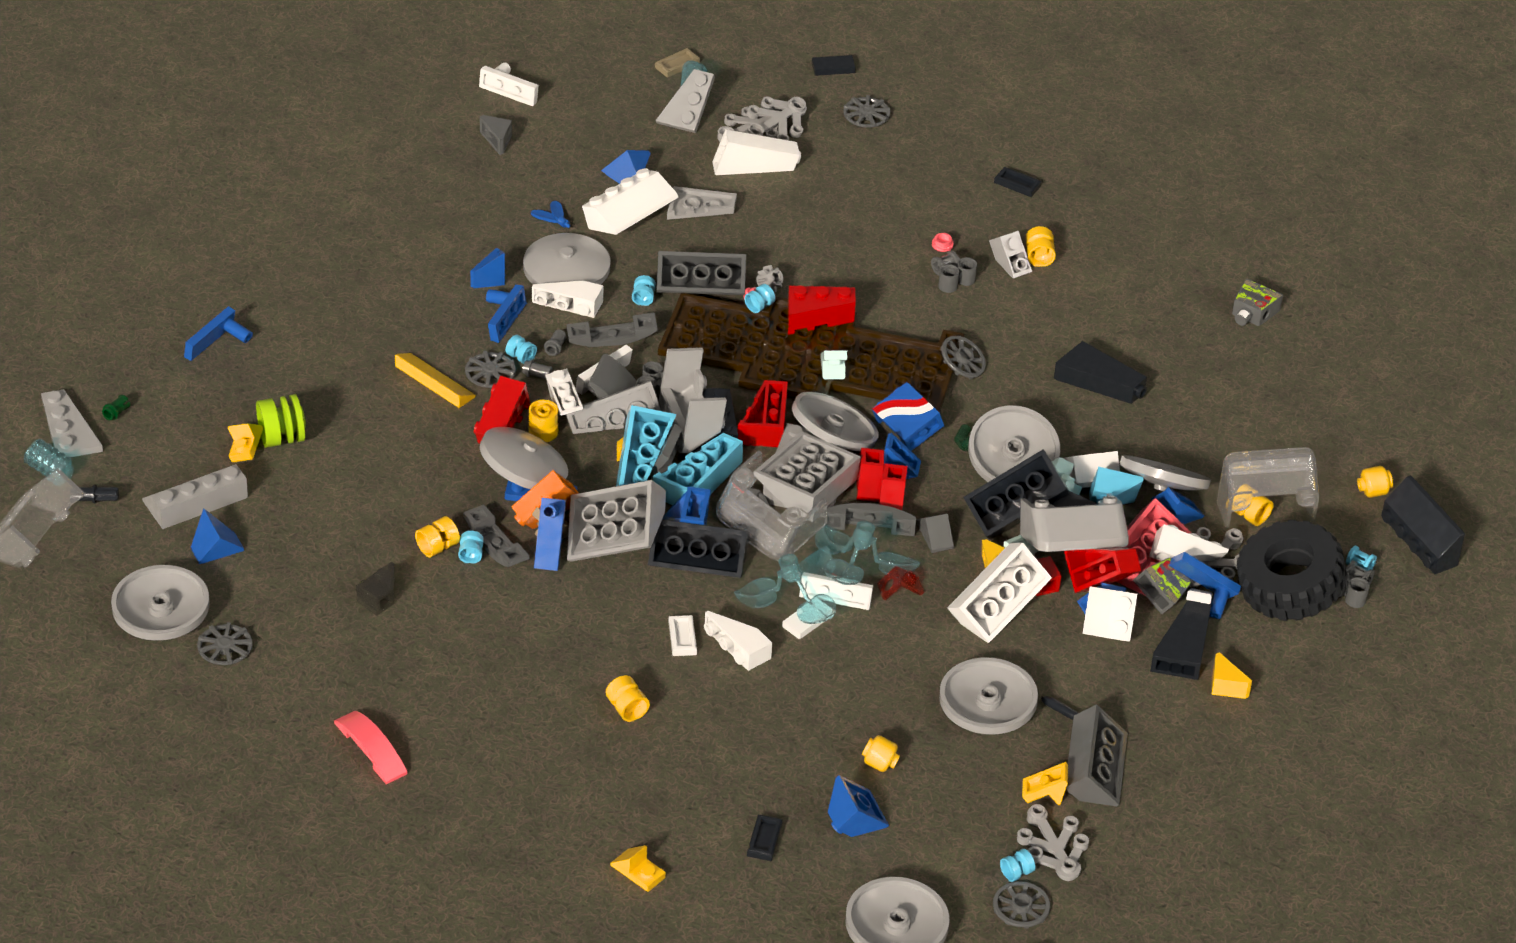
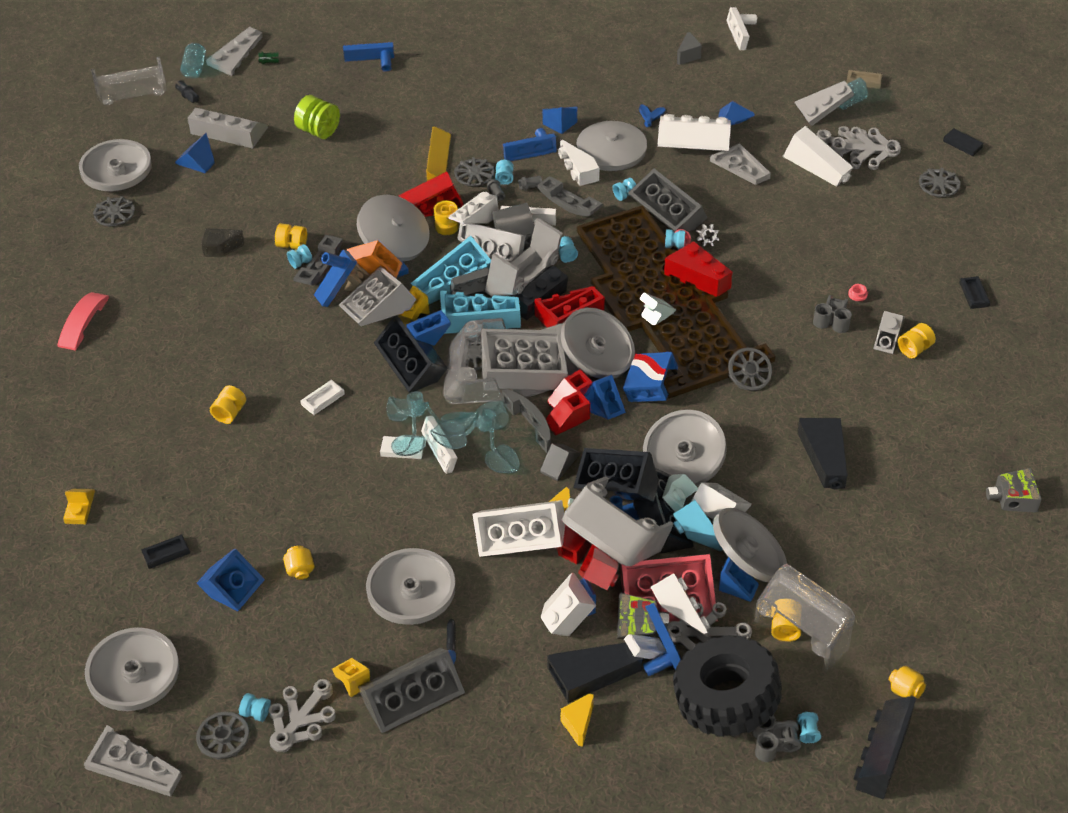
camera: 55 degrees right, 5 degrees up
(245, 441) = (287, 120): yellow slope -> none
(742, 641) = (339, 431): white slope -> none
(900, 578) = (488, 473): clear red bracket -> none

